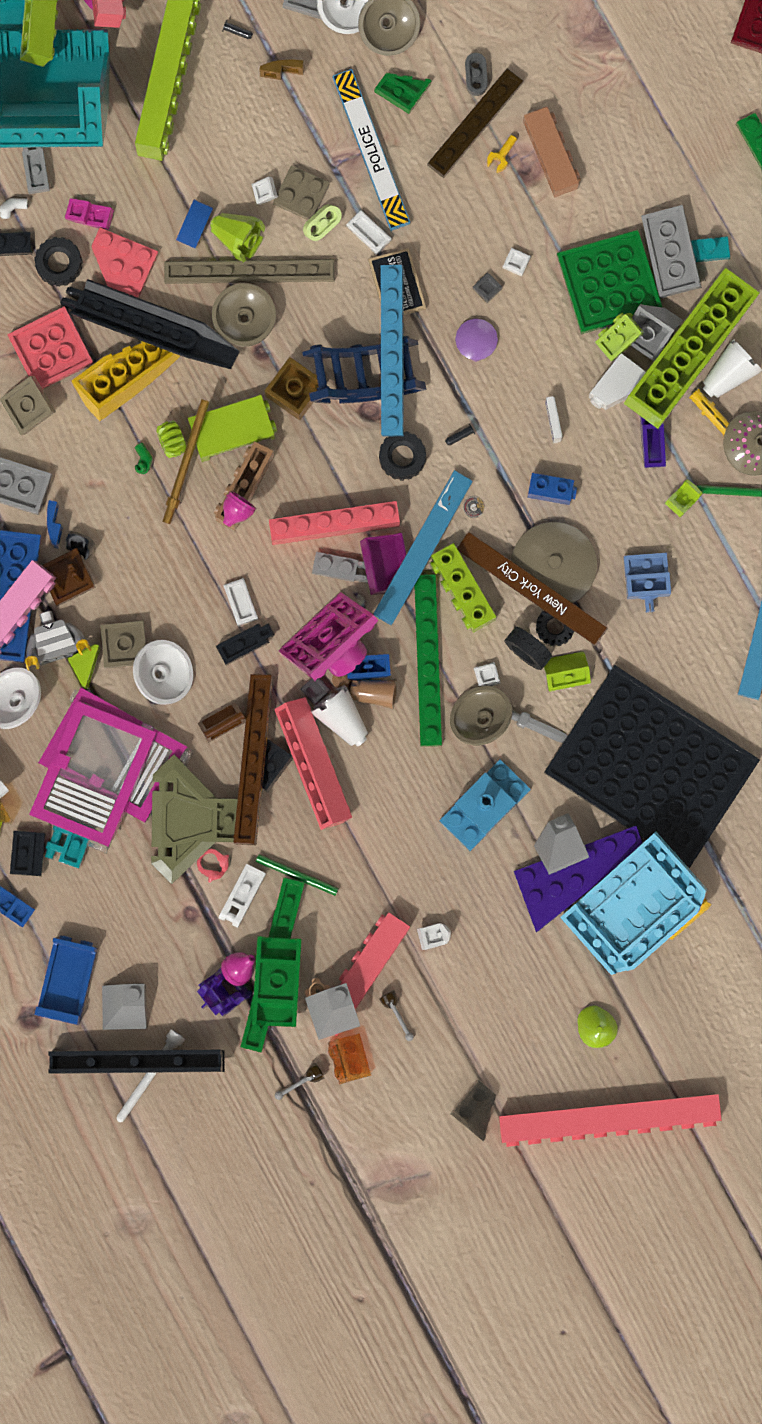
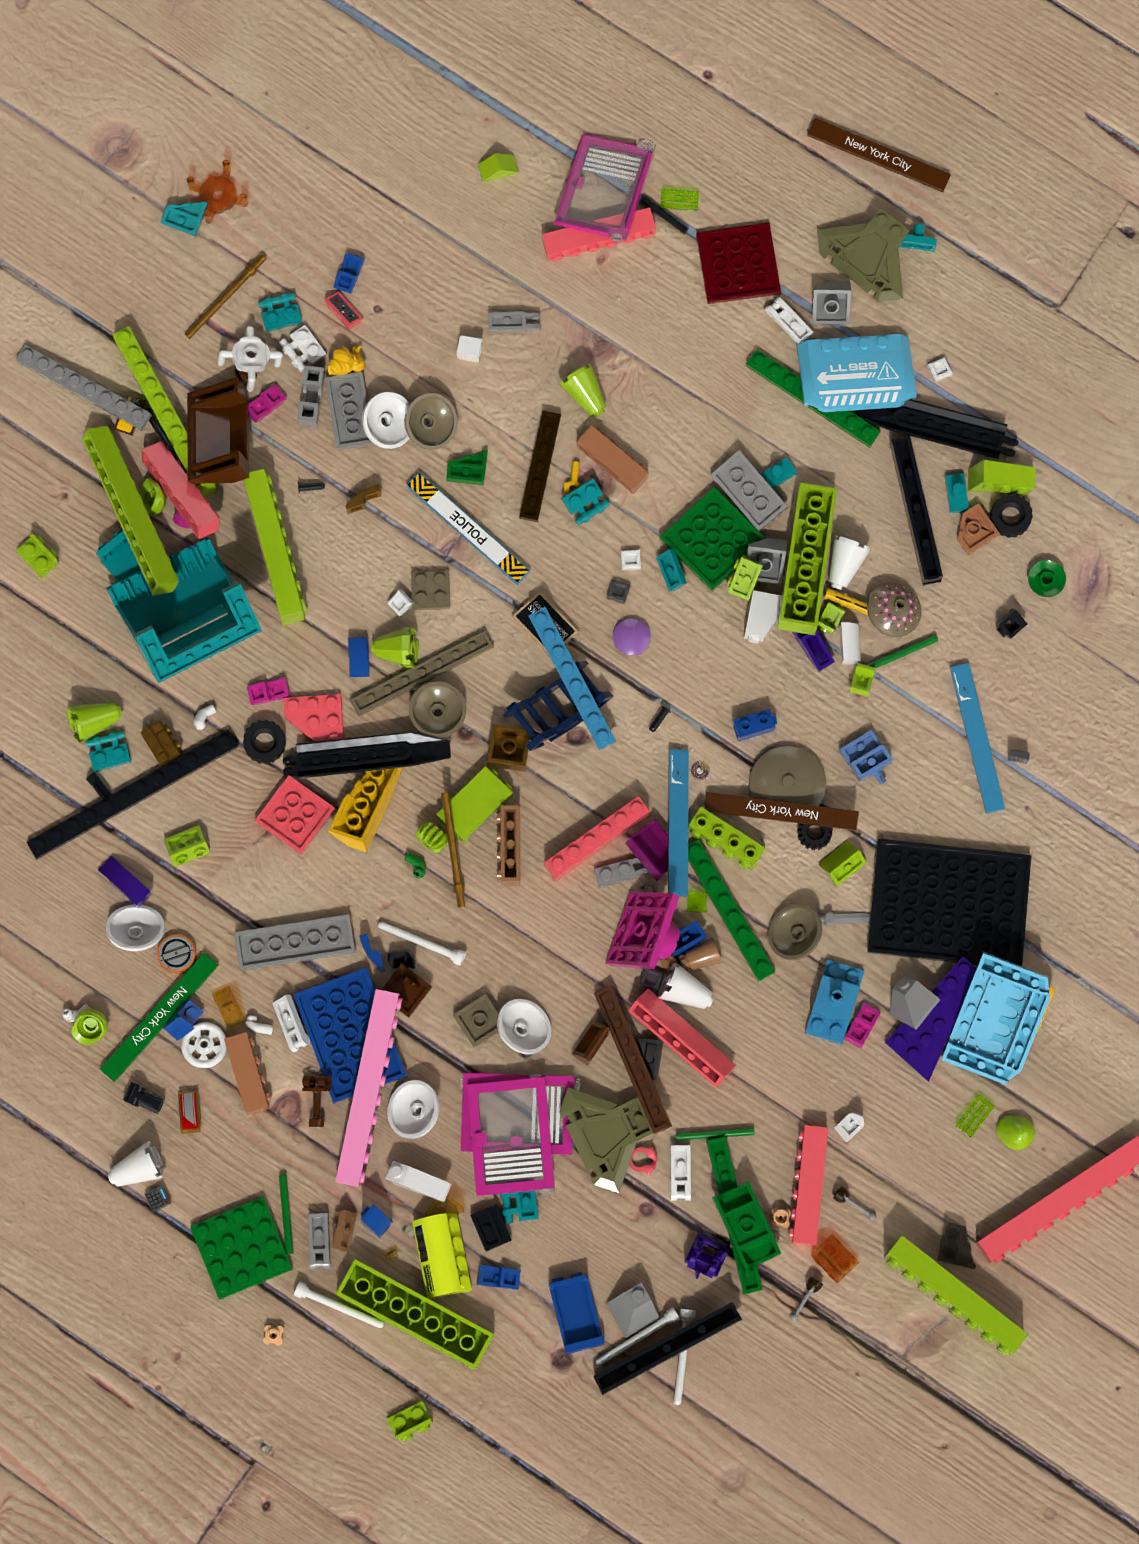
camera: 30 degrees left, 5 degrees down
(27, 405) = (301, 868): dark tan plate -> none
(35, 170) = (208, 679): light grey hinge -> none
(54, 641) = (423, 1046): torso -> none
(84, 664) = (456, 1053): lime slope -> none
(135, 569) = (456, 956): none -> white piece
(156, 1032) = (669, 1317): none -> white piece
(236, 509) = (516, 866): dark pink helmet -> none
(238, 968) = (709, 1231): dark pink helmet -> none
(240, 602) = (554, 939): white tile -> none
(245, 643) = (575, 970): black hinge -> none
(322, 223) = (459, 605): yellowish green plate -> none
(332, 1011) = (803, 1226): light grey slope -> none
(368, 232) = (501, 594): white tile -> none
(401, 636) = (697, 902): none -> clear neon green tile
(402, 472) = (622, 772): black tyre -> none
(448, 1159) = (956, 1296): none -> lime brick
(476, 75) = (520, 428): dark grey plate -> none
(487, 675) = (781, 898): white tile -> none
(500, 842) = (862, 1025): none -> dark pink slope
(501, 174) = (581, 497): none -> teal plate
(528, 648) = (804, 859): black tyre -> none
(551, 292) = (671, 570): none -> teal plate
(553, 419) = (726, 669): white tile -> none
(560, 67) = (585, 390): none -> lime cone
(581, 982) = (984, 1103): none -> clear neon green tile
(685, 420) = (831, 618): none -> lime bracket
(691, 456) = (850, 643): none -> white brick

